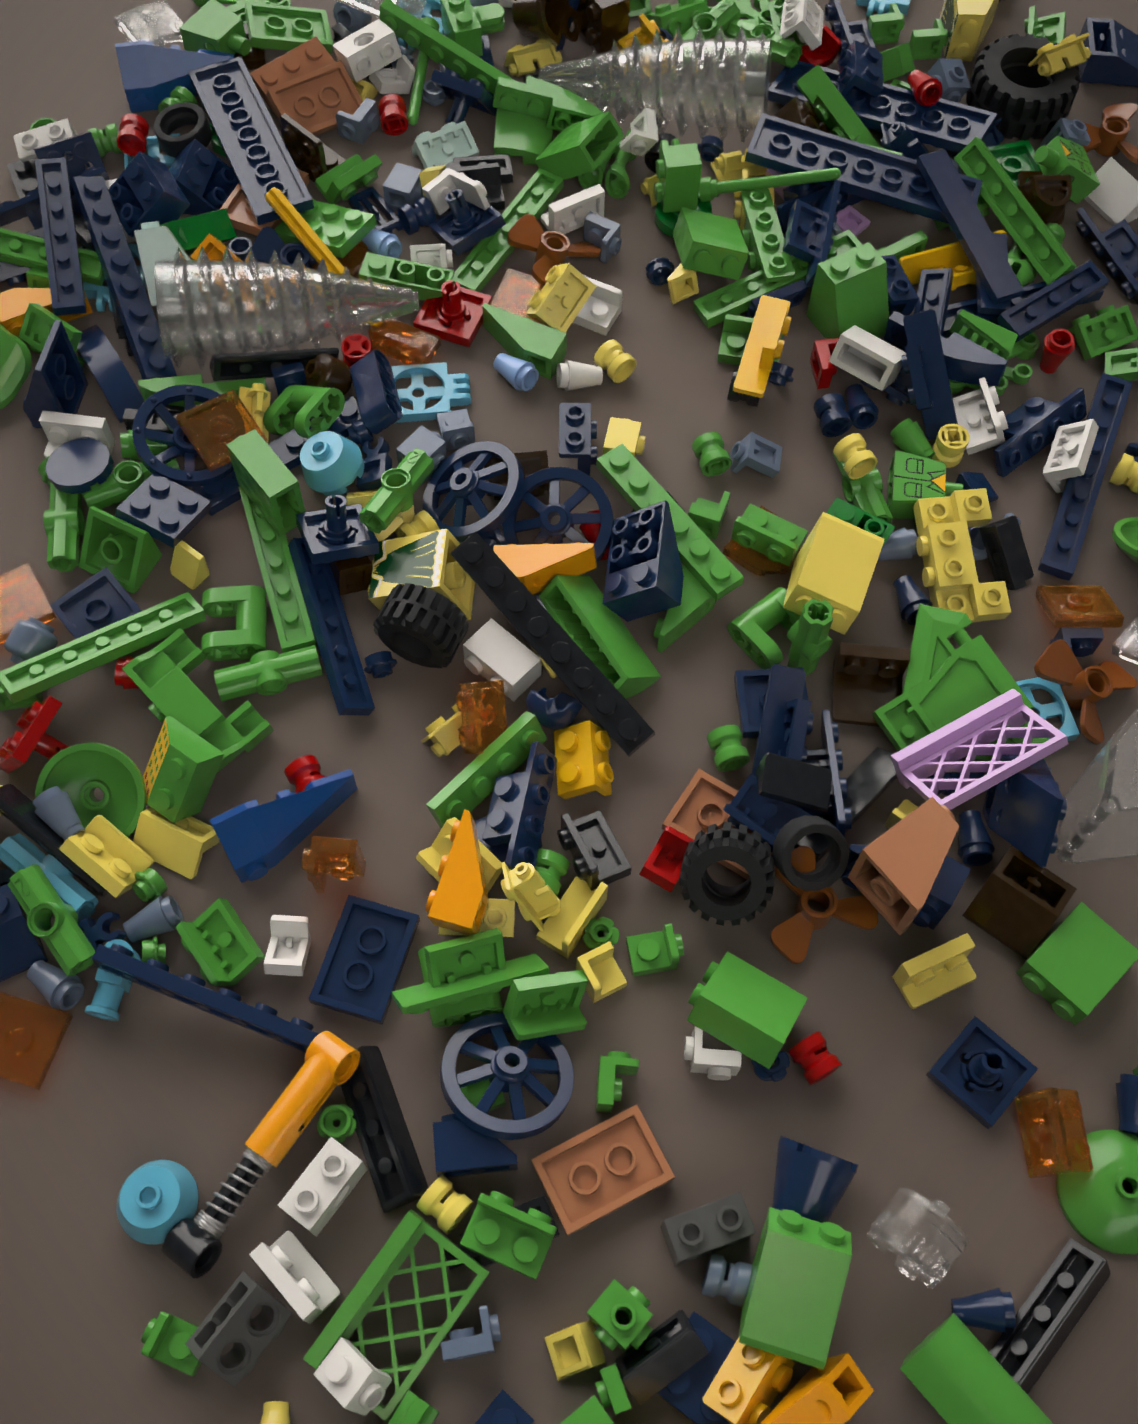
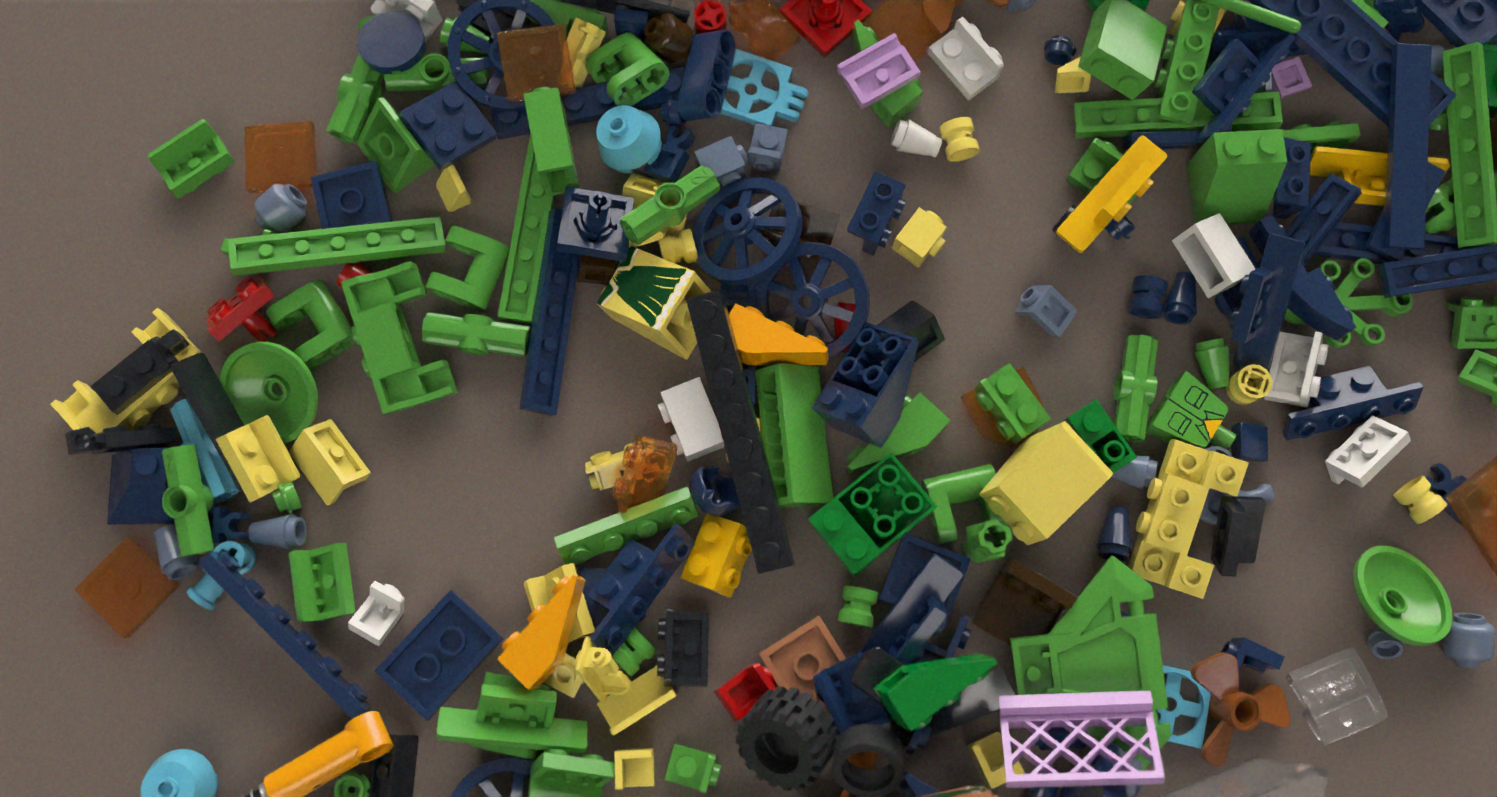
camera: 25 degrees right, 15 degrees up
(58, 812) = (231, 401): sand blue cone -> none
(99, 706) = (326, 315): none -> bright green connector
(153, 950) = (264, 564): bright green plate -> none
(180, 771) = (352, 405): bright green slope -> none
(264, 834) = (396, 501): blue wedge -> none
(303, 771) = (464, 459): red wheel -> none
(332, 856) = (446, 553): clear orange bracket -> none
(380, 664) = (580, 371): dark blue plate -> none
(421, 625) = (628, 358): black tyre -> none
(516, 371) = (854, 117): light blue cone -> none
(522, 329) = (878, 71): none -> lavender plate
(560, 297) = (938, 45): light yellow bracket -> none
(602, 924) = (650, 739): bright green plate -> none
(694, 547) = (911, 318): bright green plate -> none
(699, 668) = (871, 515): none -> green slope
(709, 514) = (964, 352): bright green panel -> none
(712, 456) = (1002, 288): bright green wheel -> none
(820, 364) = (1170, 227): red bracket -> none
(821, 771) = (923, 688): none -> green slope
(853, 453) = (1138, 363): light yellow wheel -> none
(984, 333) = (1353, 283): bright green slope -> none
(1056, 349) = (1423, 326): red cone -> none
(1079, 606) = (1277, 621): clear orange tile -> none
(1082, 491) = (1349, 501): dark blue plate -> none

